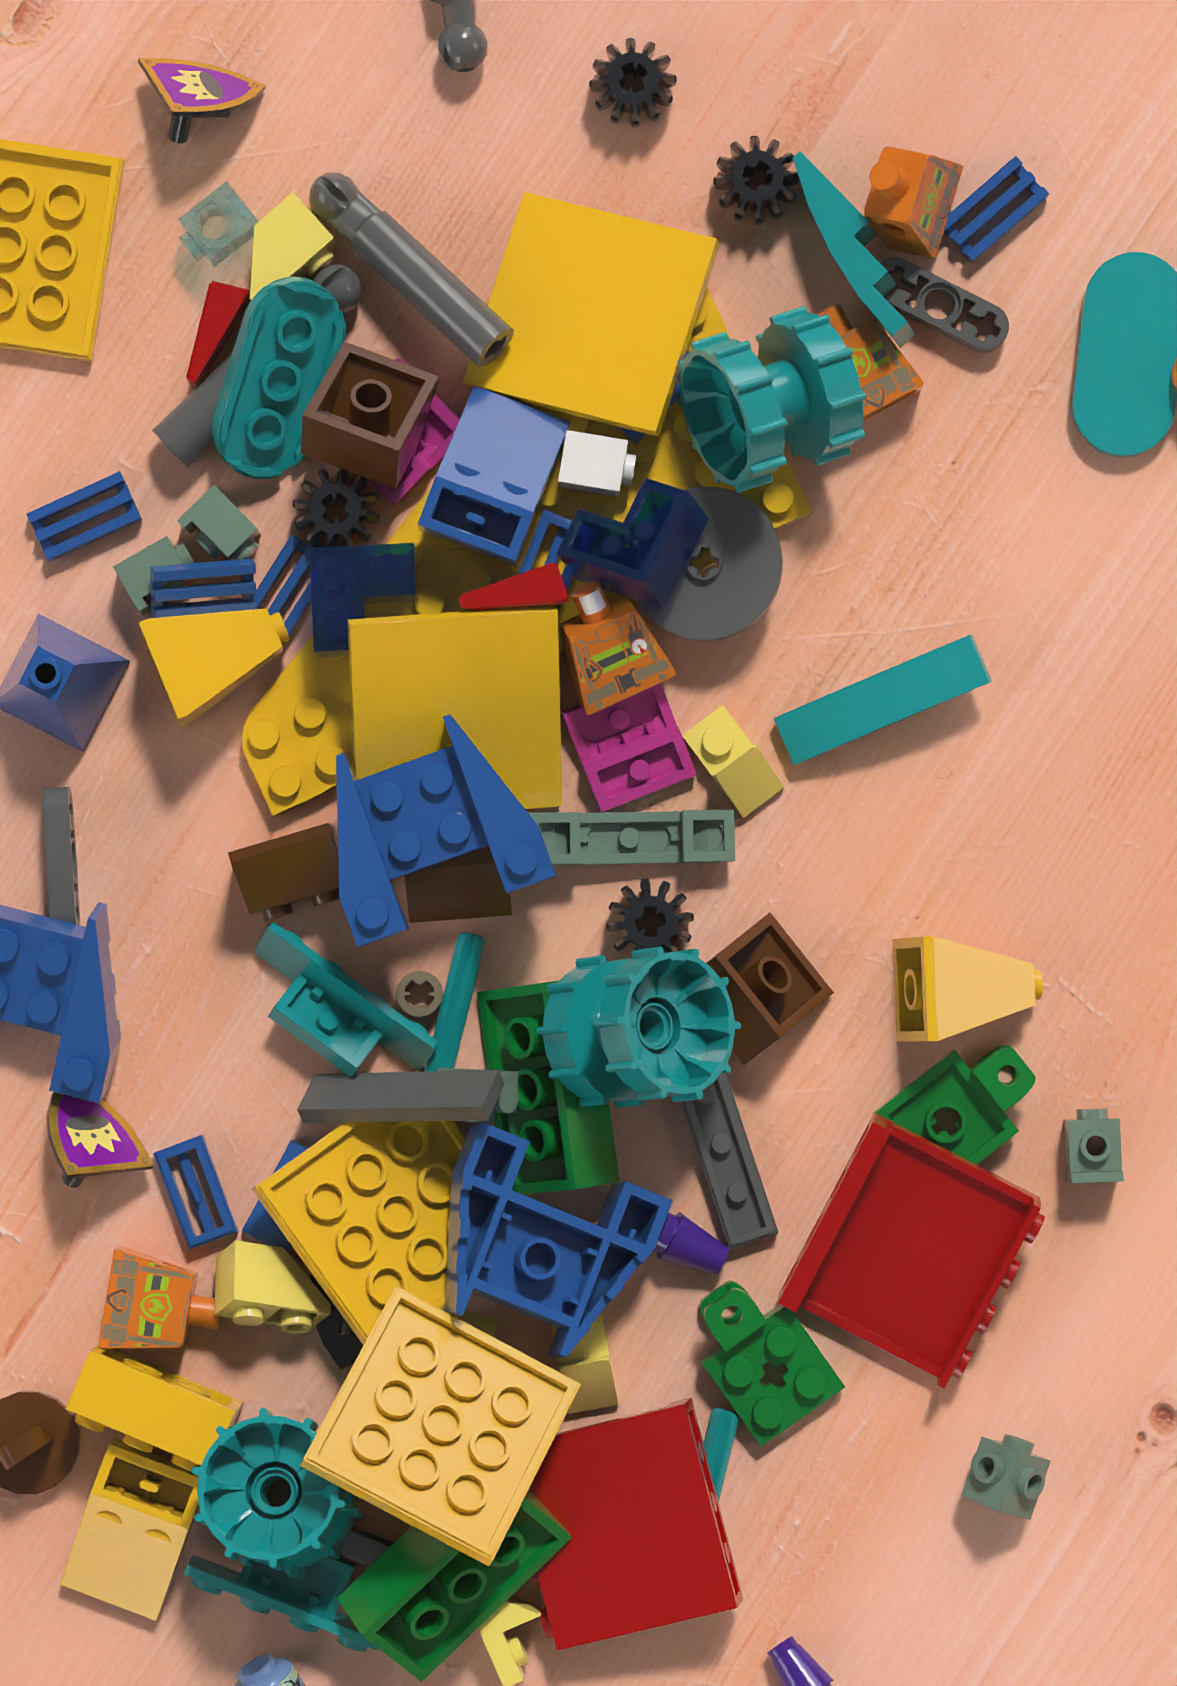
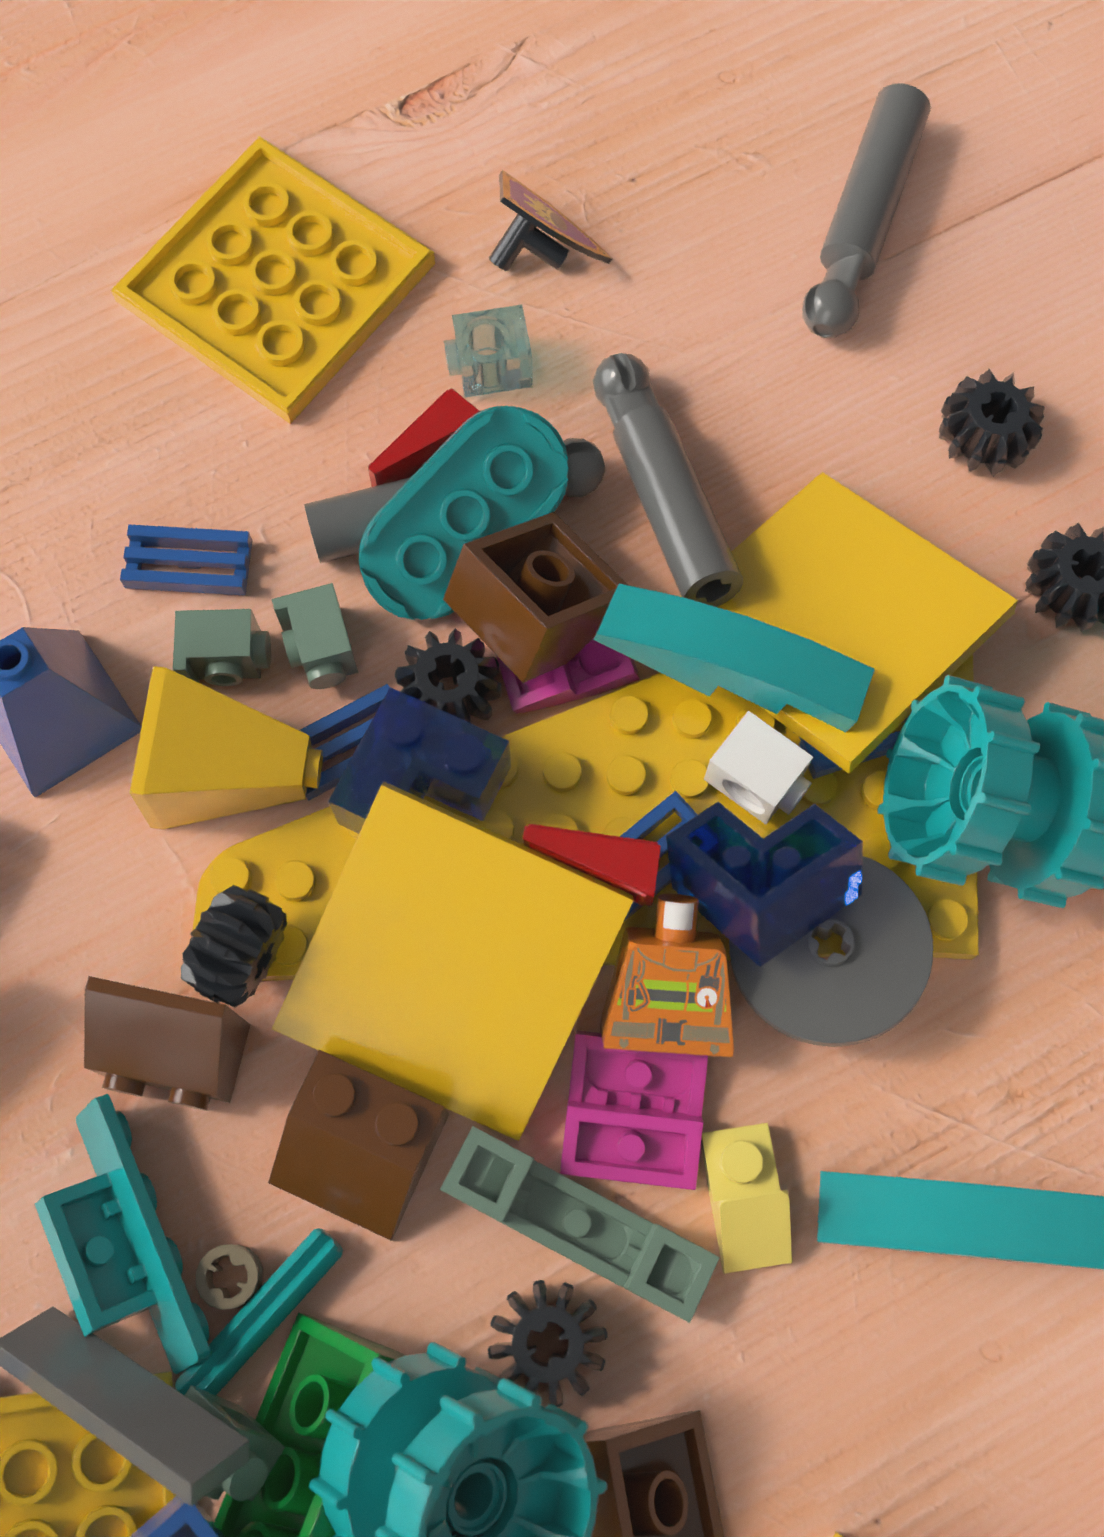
camera: 30 degrees right, 15 degrees down
(245, 588) = (204, 660): blue tile -> none
(289, 244) = (557, 389): light yellow slope -> none
(305, 781) = (233, 945): none -> black gear
(423, 818) = (333, 1060): blue wedge -> none
(493, 476) = (627, 736): slope -> none
(535, 394) = (733, 651): none -> teal slope

